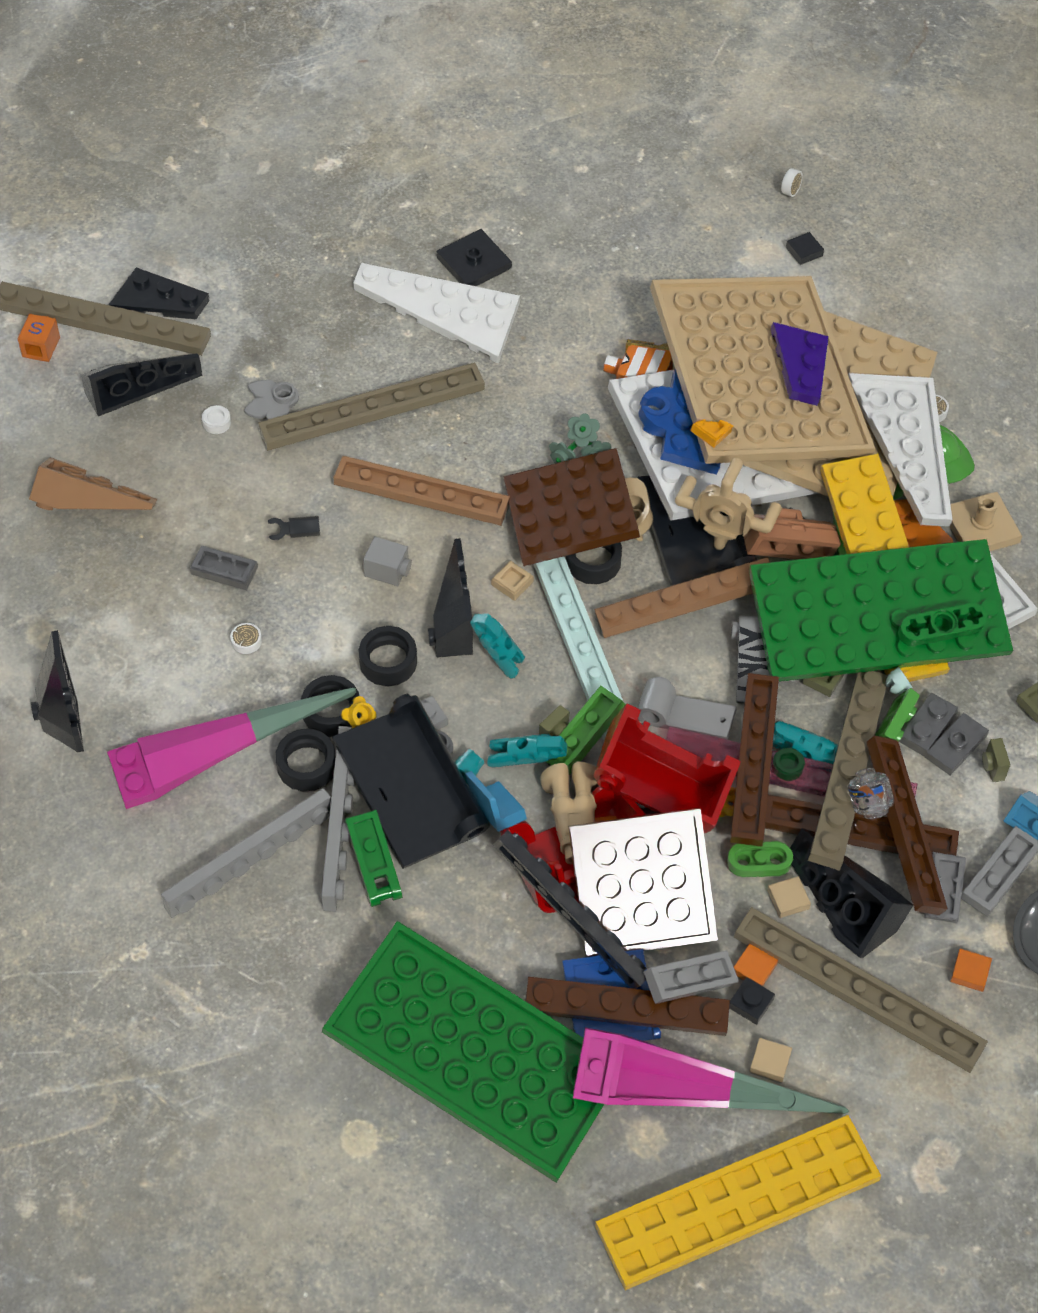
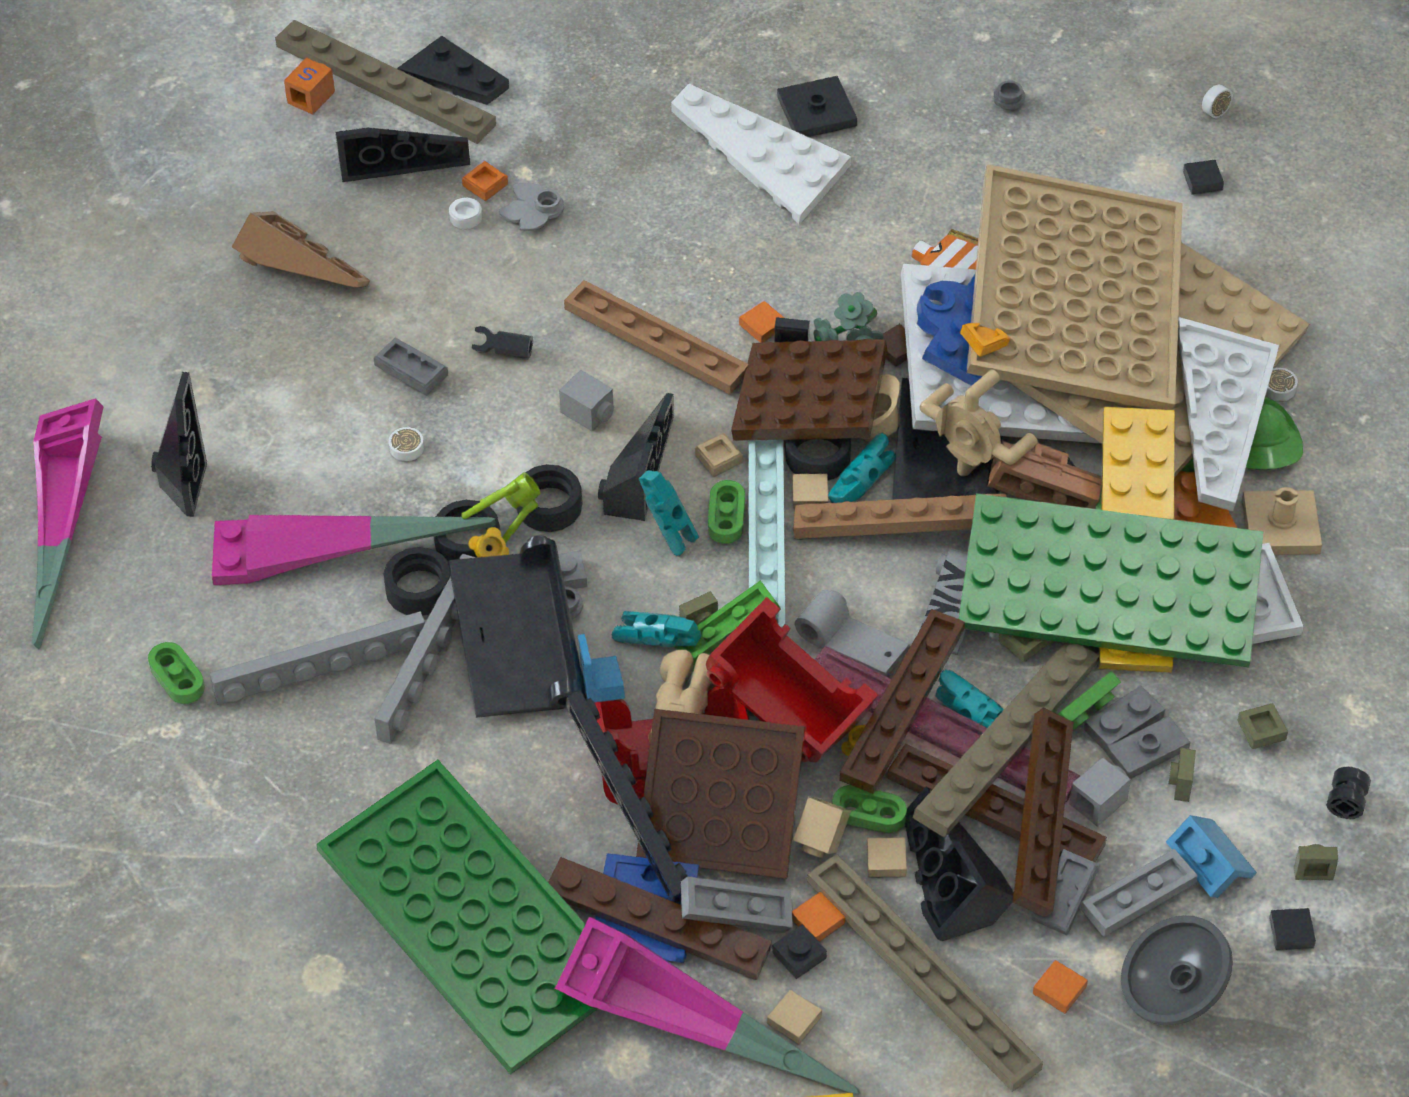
camera: 20 degrees right, 5 degrees down
(129, 901) = (179, 675): none -> bright green plate
(221, 387) = (485, 181): none -> orange tile
(366, 659) = (518, 493): none -> lime plant
(371, 406) = (638, 236): dark tan plate -> none
(373, 857) = (446, 695): green plate -> none
(469, 762) = (591, 627): teal hose -> none
(503, 455) = (760, 321): none -> orange tile
(533, 458) = (791, 330): none -> black tile
(540, 632) = (726, 518): none -> bright green plate
(599, 592) = (809, 489): none -> tan tile
(625, 447) = (896, 345): none -> reddish brown tile
(626, 214) = (1009, 95): none -> flat silver plate
(638, 566) = (863, 471): none -> teal hinge
(731, 887) = (821, 827): none -> tan brick
(788, 764) = (940, 717): dark green tile -> none
(802, 361) = (1126, 290): dark purple wing -> none
(870, 793) = (1010, 765): clear head -> none
(897, 681) = (1104, 662): light aqua hinge -> none
(937, 792) = (1100, 791): none -> light grey brick
(952, 614) = (1183, 599): green beam -> none

